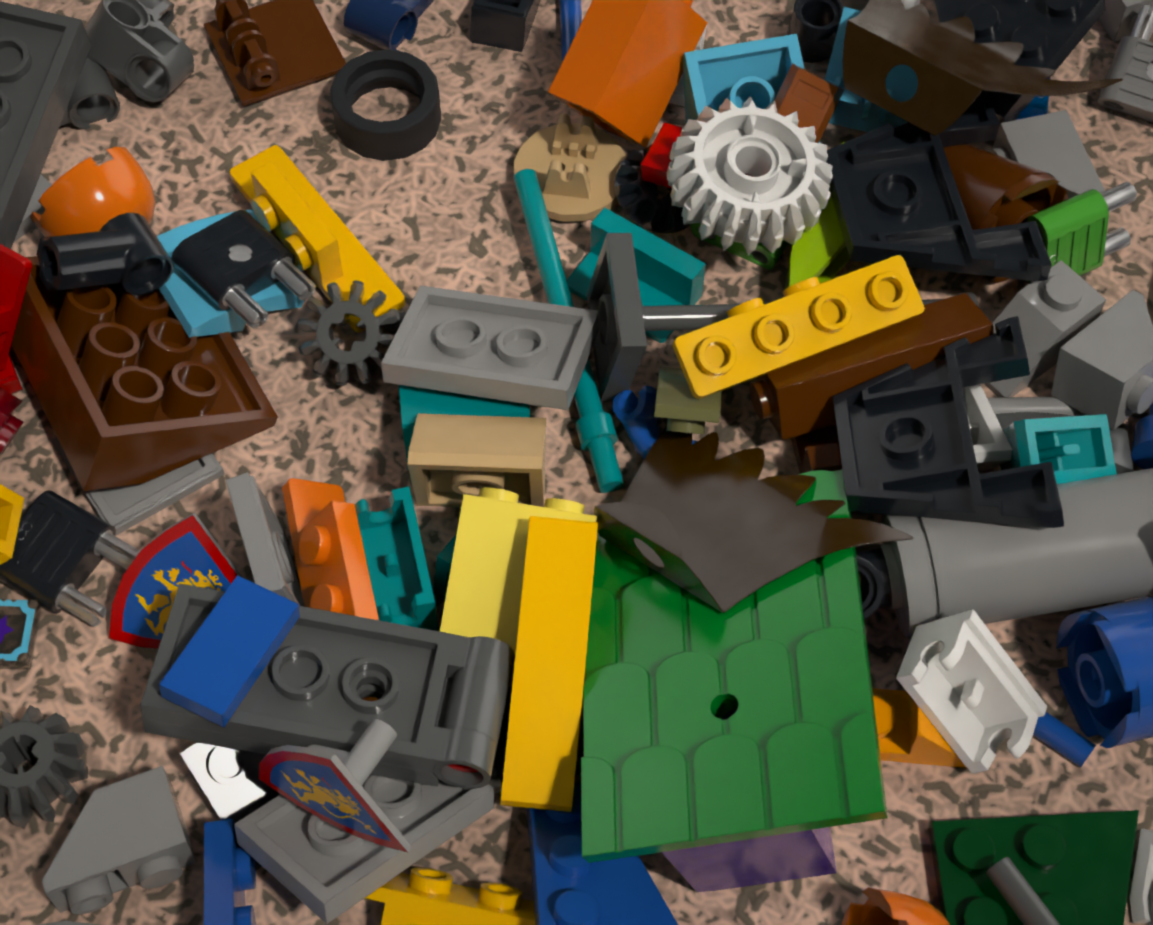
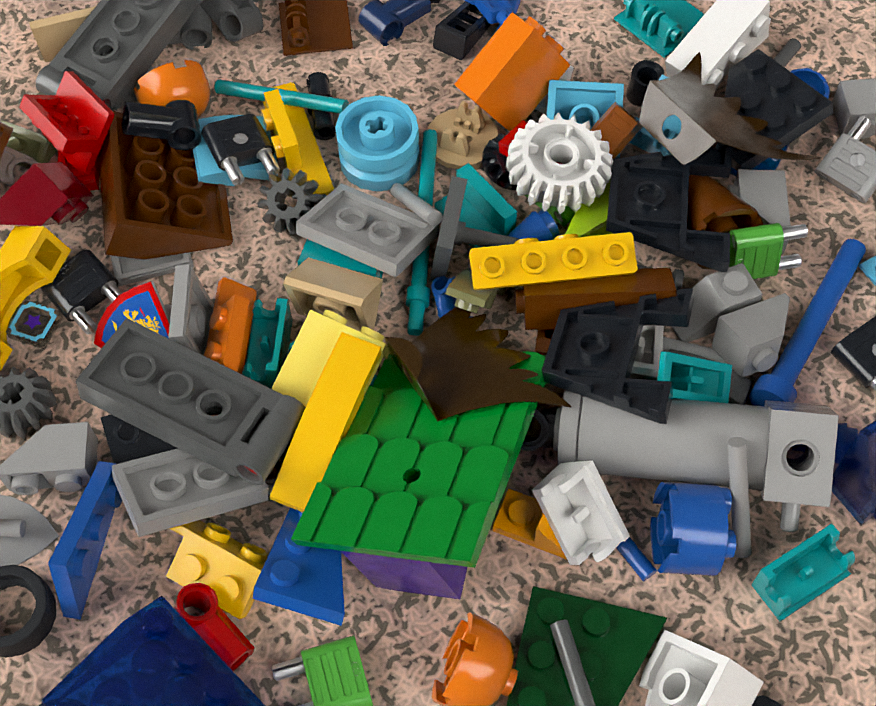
camera: 20 degrees right, 0 degrees up
(229, 651) = (136, 363): blue tile -> none
(293, 169) = (288, 97): none -> teal bar
(331, 783) = (166, 450): shield -> none
(335, 172) = (323, 121): none -> black pin
(389, 138) = (365, 52): black tyre -> none
(451, 209) = (378, 142): none -> medium azure wheel
(551, 290) = (416, 204): none -> light grey bar
(737, 281) = (538, 226): none -> blue cone

